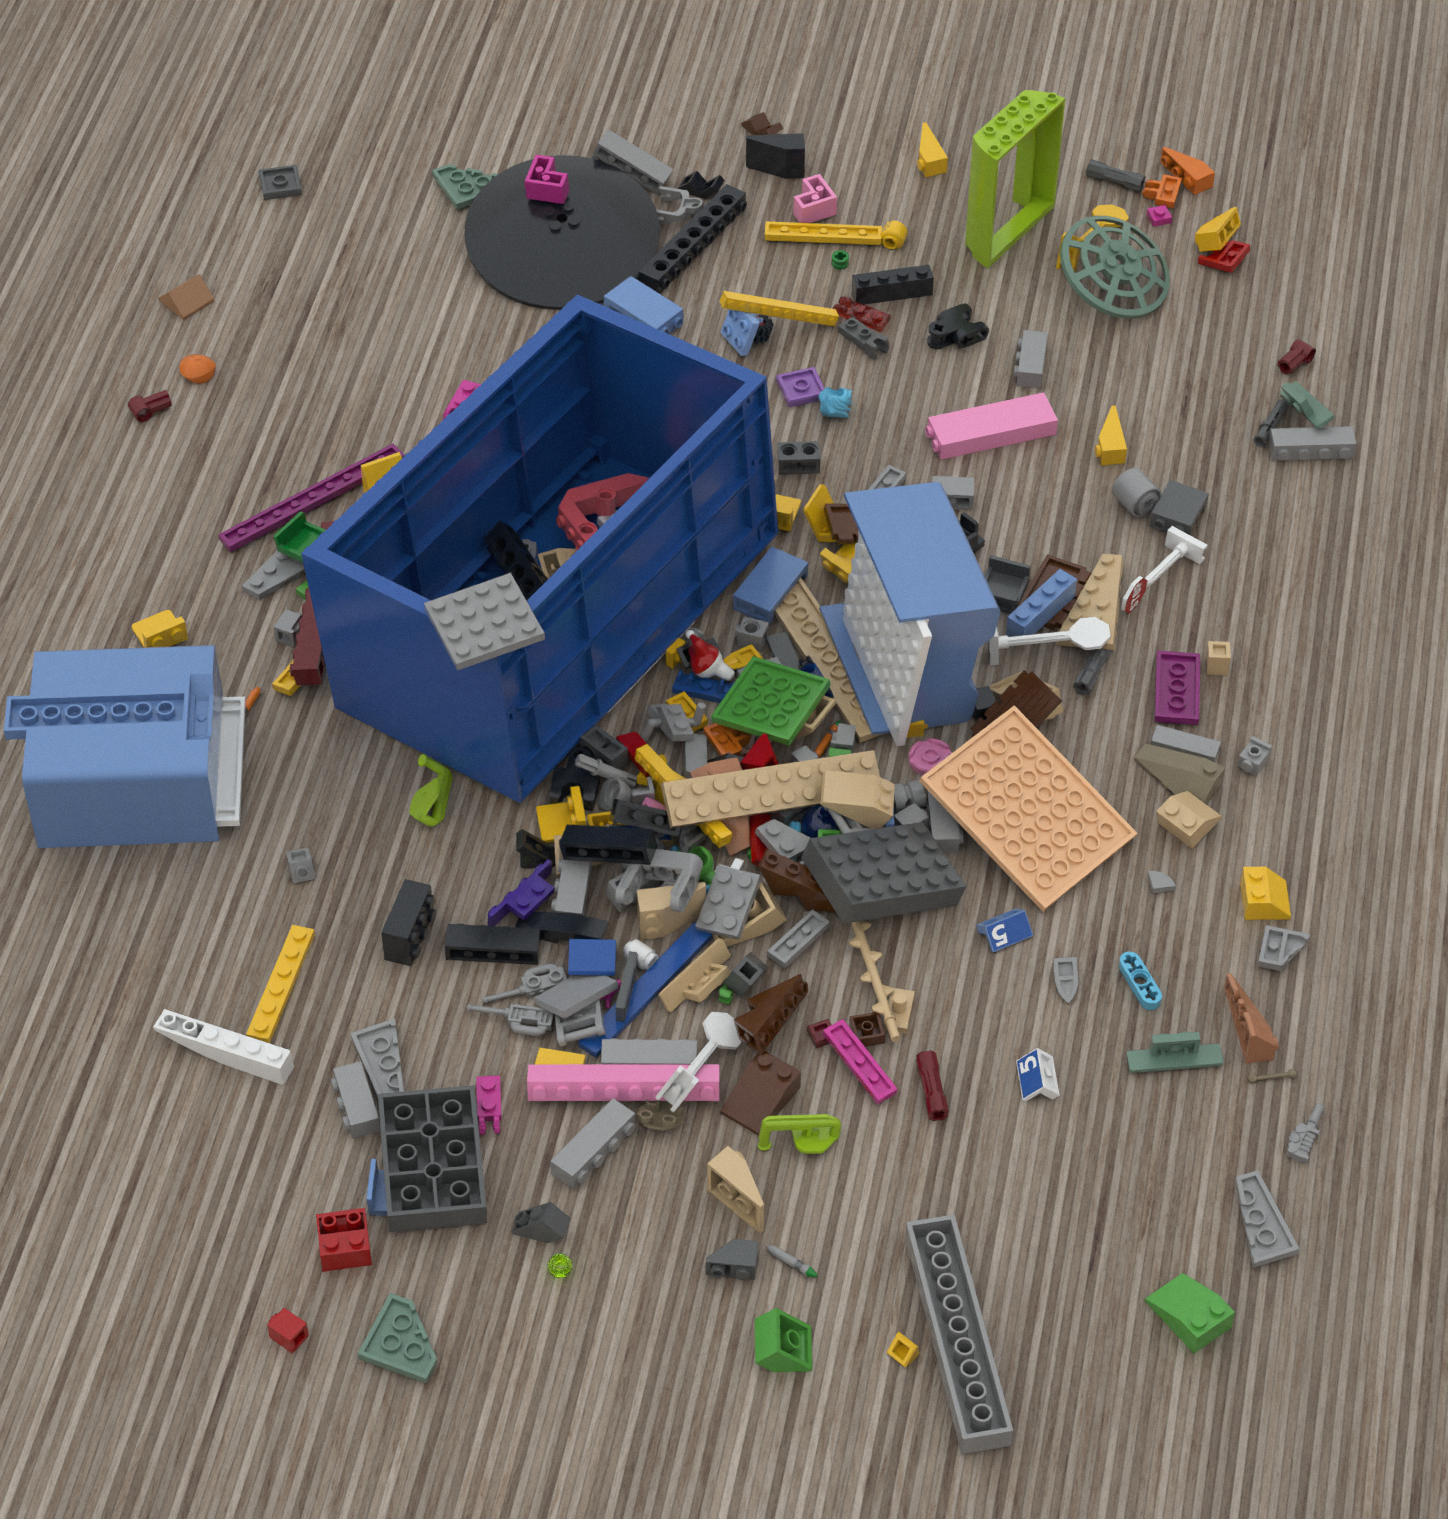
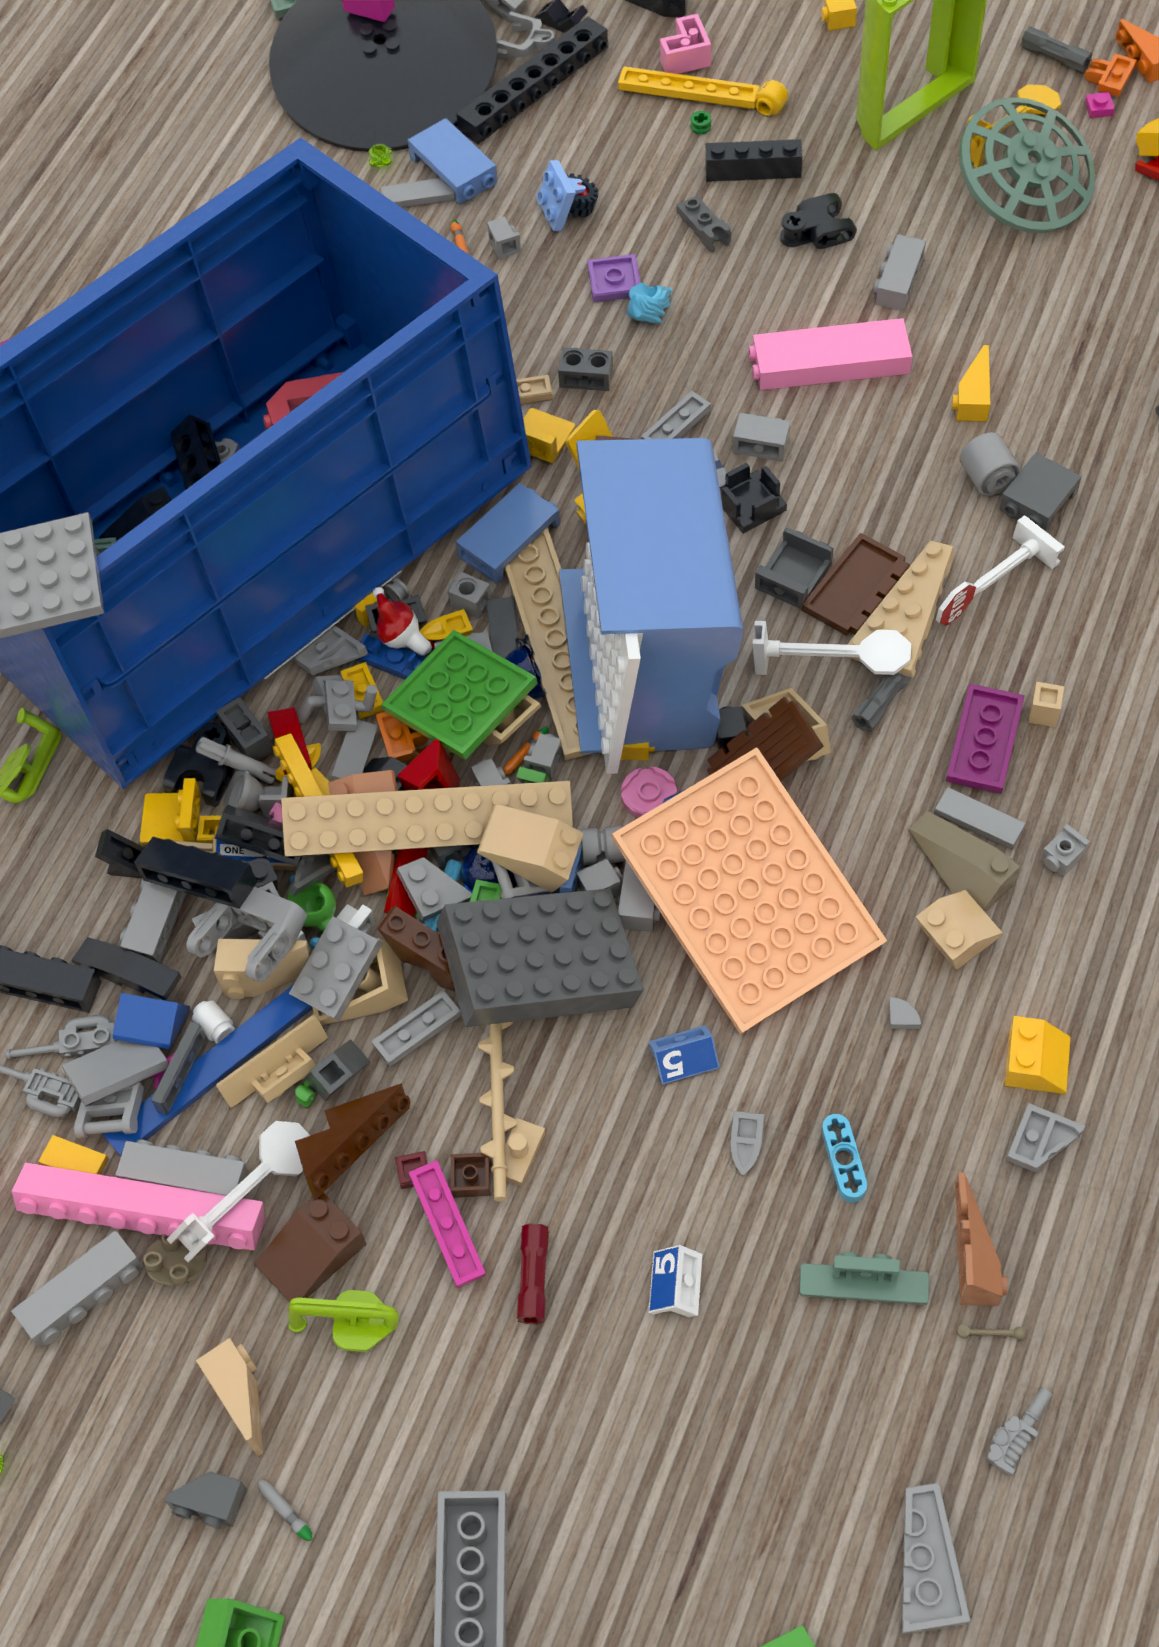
camera: 15 degrees right, 10 degrees up
(526, 897) = (94, 920): dark purple bracket -> none
(653, 686) = (330, 651): none -> light grey wing
(779, 308) = (605, 176): yellow piece -> none
(868, 316) = (712, 194): clear red hinge -> none
(1042, 605) = (834, 604): medium blue brick -> none

